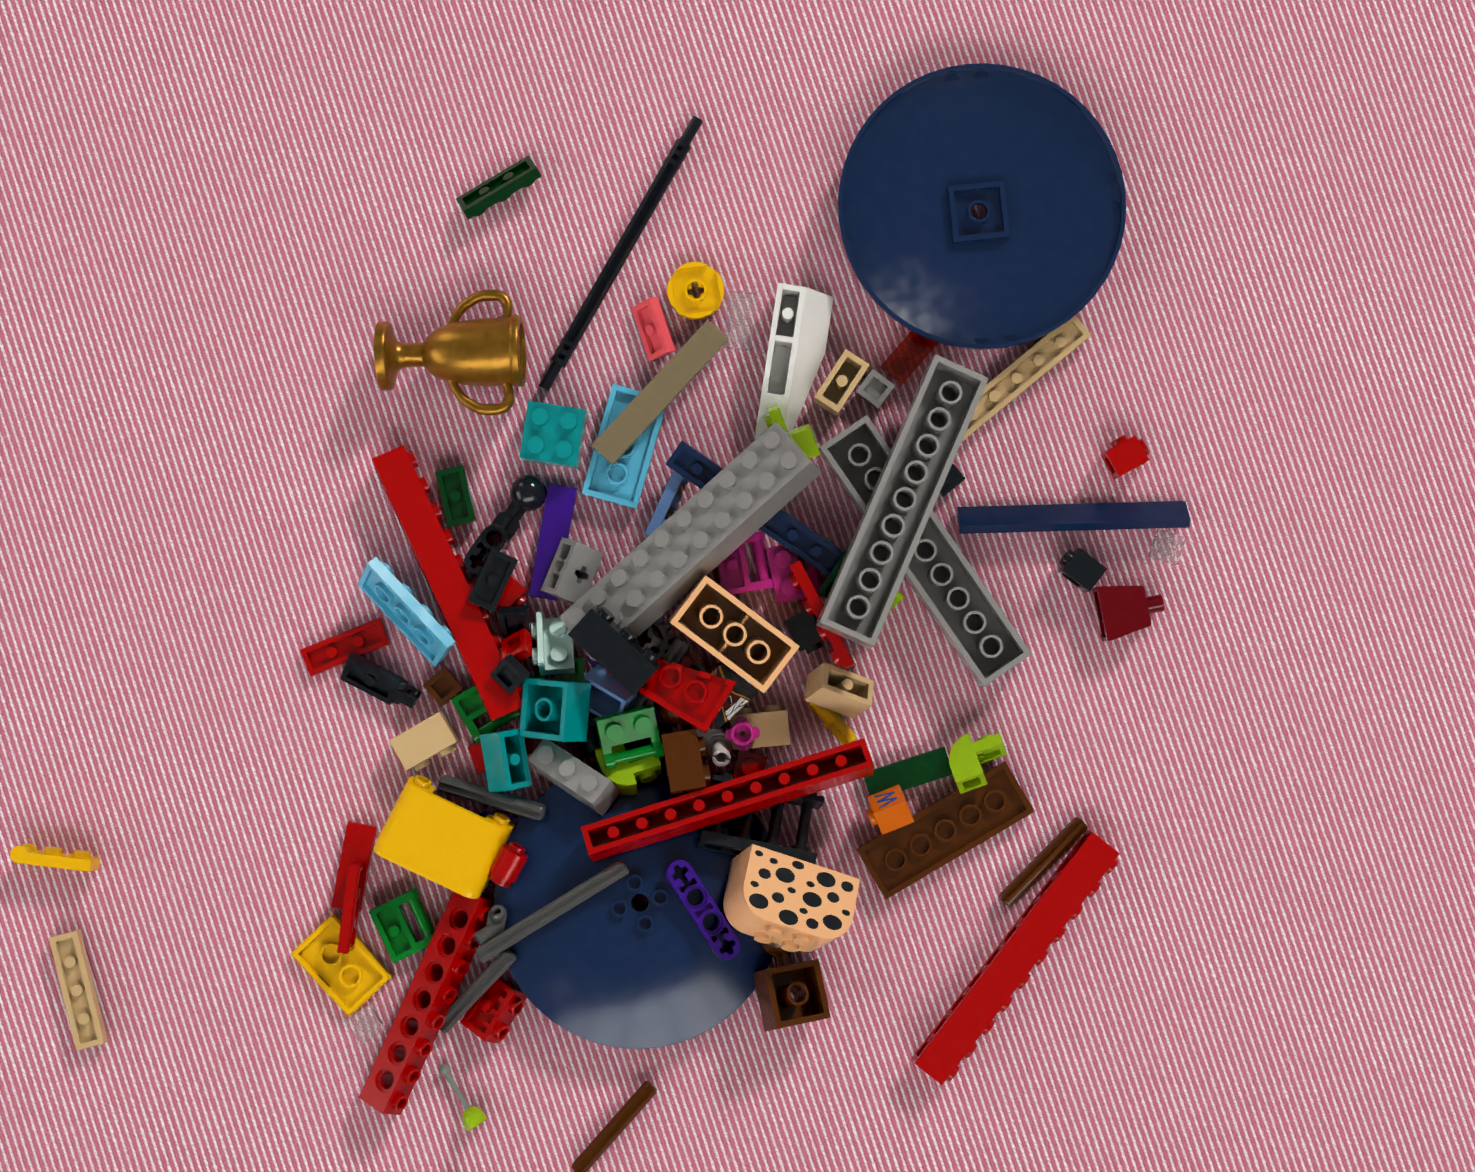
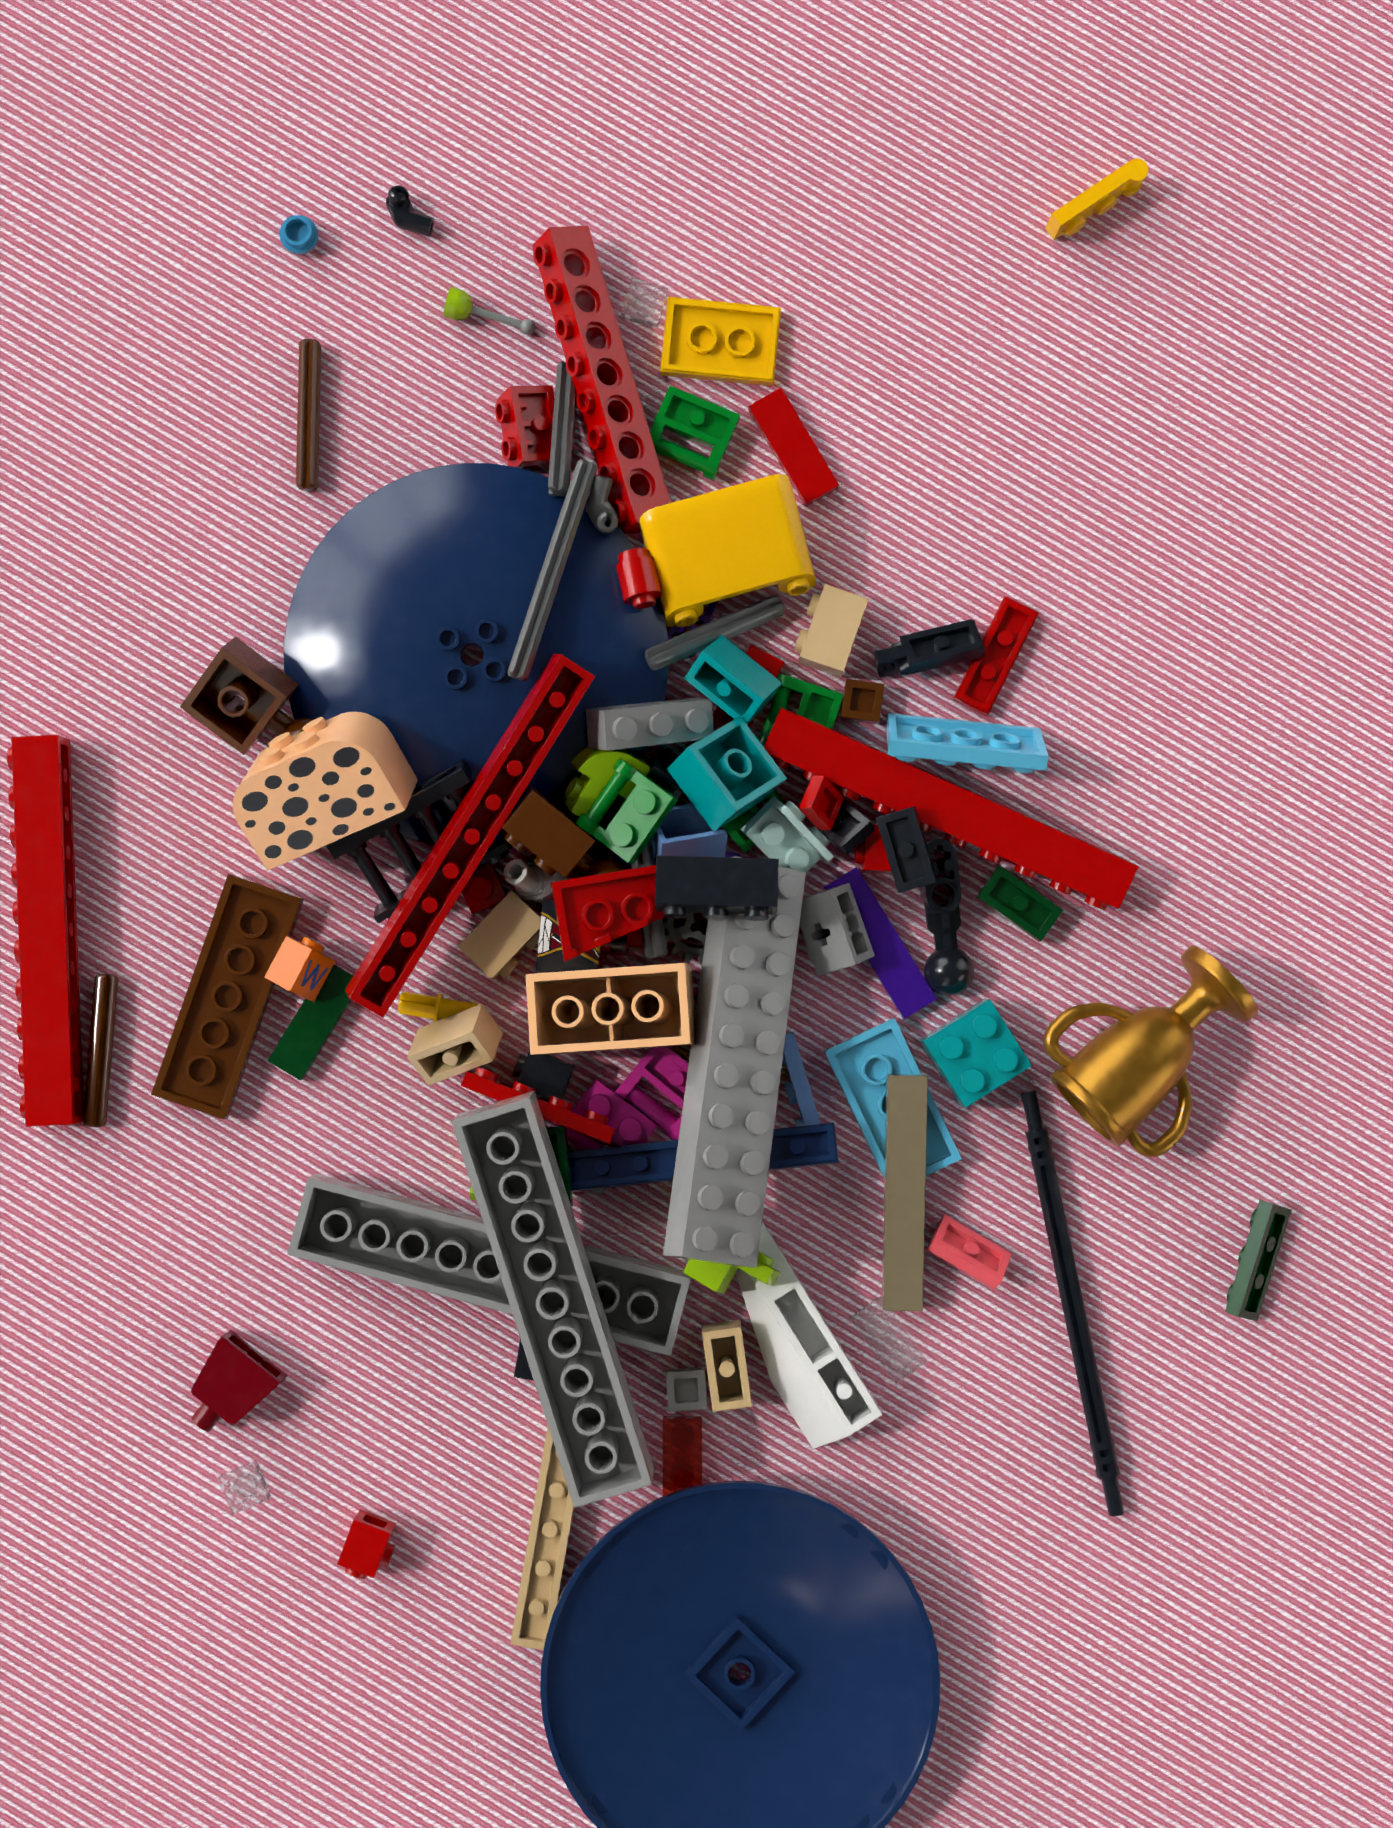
camera: 140 degrees right, 0 degrees up
(78, 989) = (959, 93): tan plate -> none
(351, 907) = (759, 402): red tile -> none
(510, 674) = (804, 769): black plate -> none
(682, 281) = (962, 1352): yellow plate -> none
(699, 911) = (402, 702): dark purple beam -> none
(734, 733) = (507, 922): dark pink plate -> none
(967, 756) = (265, 1091): lime brick -> none
(1073, 517) = (367, 1434): dark blue tile -> none
(1081, 569) = (312, 1386): black brick -> none

